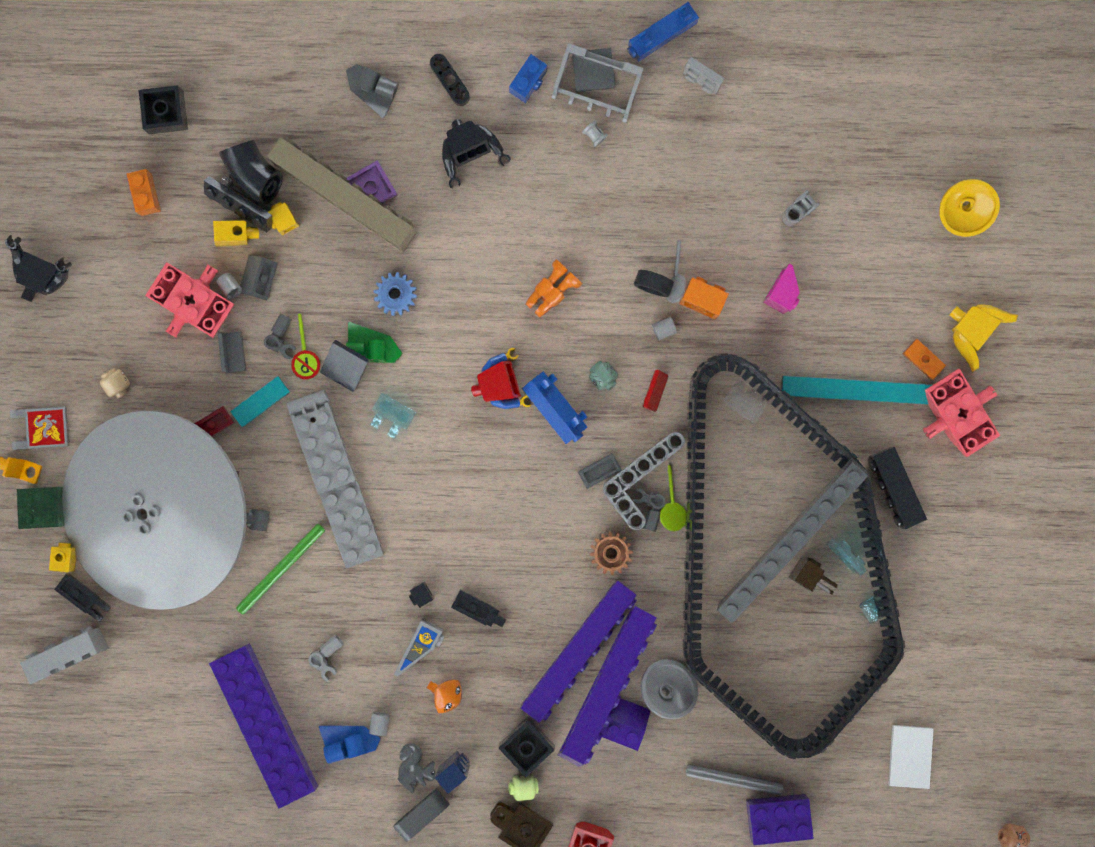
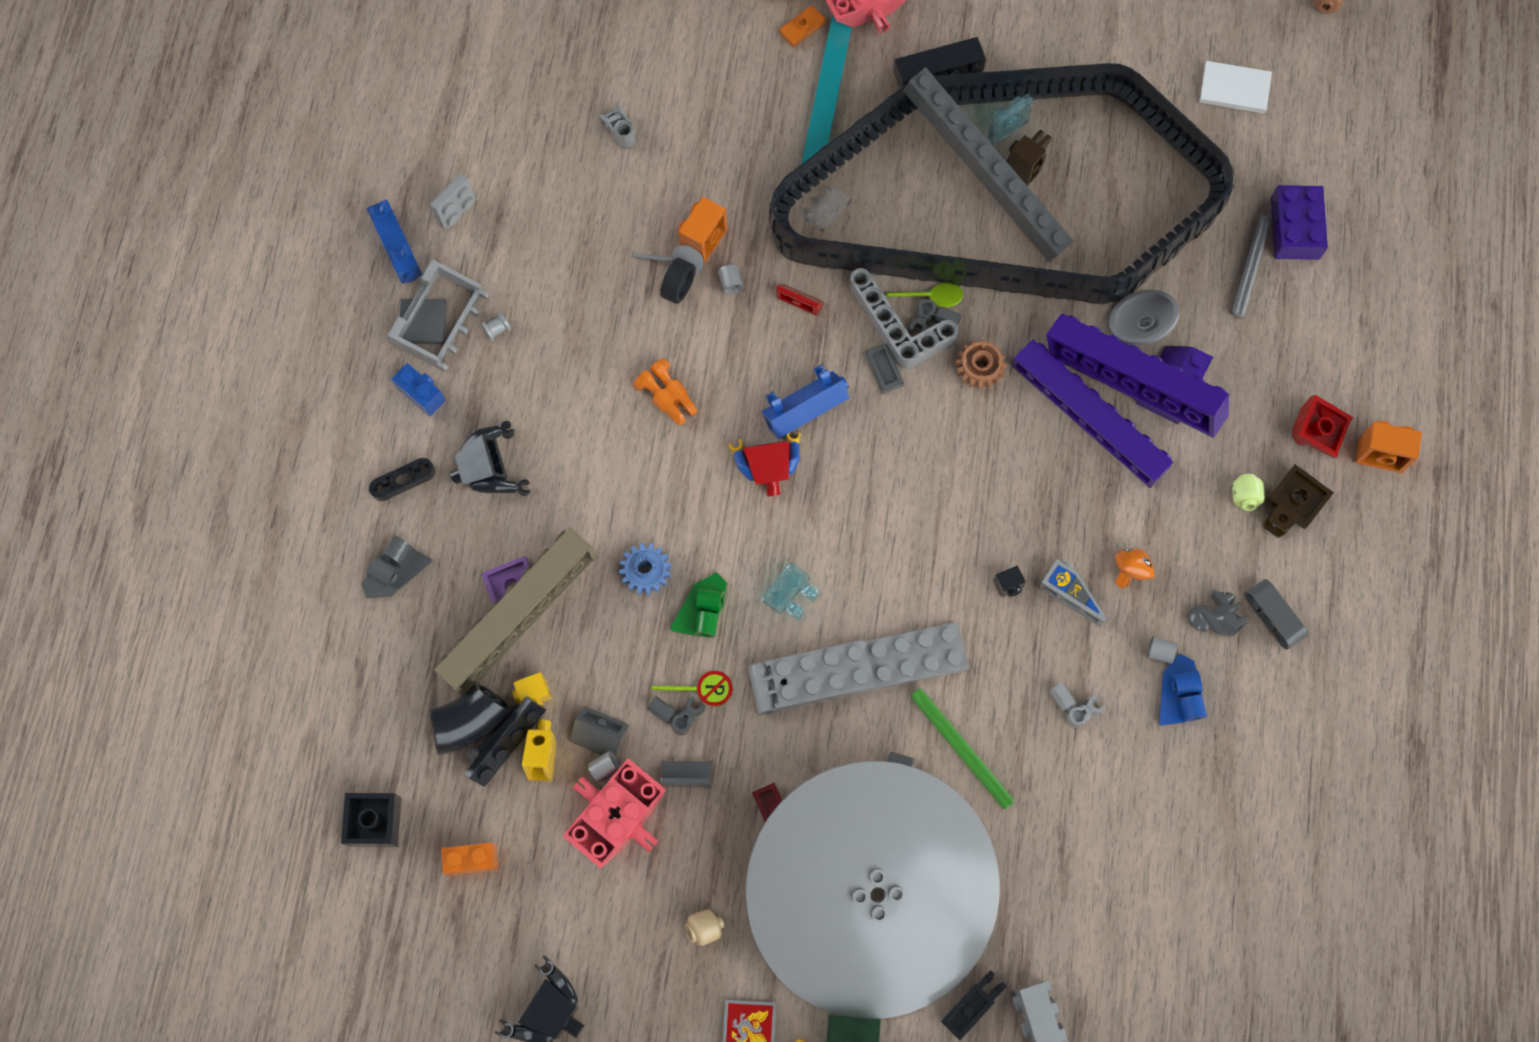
camera: 75 degrees left, 15 degrees down
(62, 558) = (920, 1023): yellow brick -> none
(260, 401) = (752, 748): teal tile -> none
(264, 725) = (1154, 789): dark purple brick -> none
(344, 366) = (723, 637): tile -> none
(453, 771) = (1226, 561): dark blue brick -> none
(477, 609) = (1033, 520): black hinge -> none
(526, 746) = (1200, 480): black brick -> none
(603, 375) = (775, 349): sand green head -> none
(784, 291) = (707, 147): dark pink slope -> none
(870, 610) = (1071, 105): clear light blue beam -> none

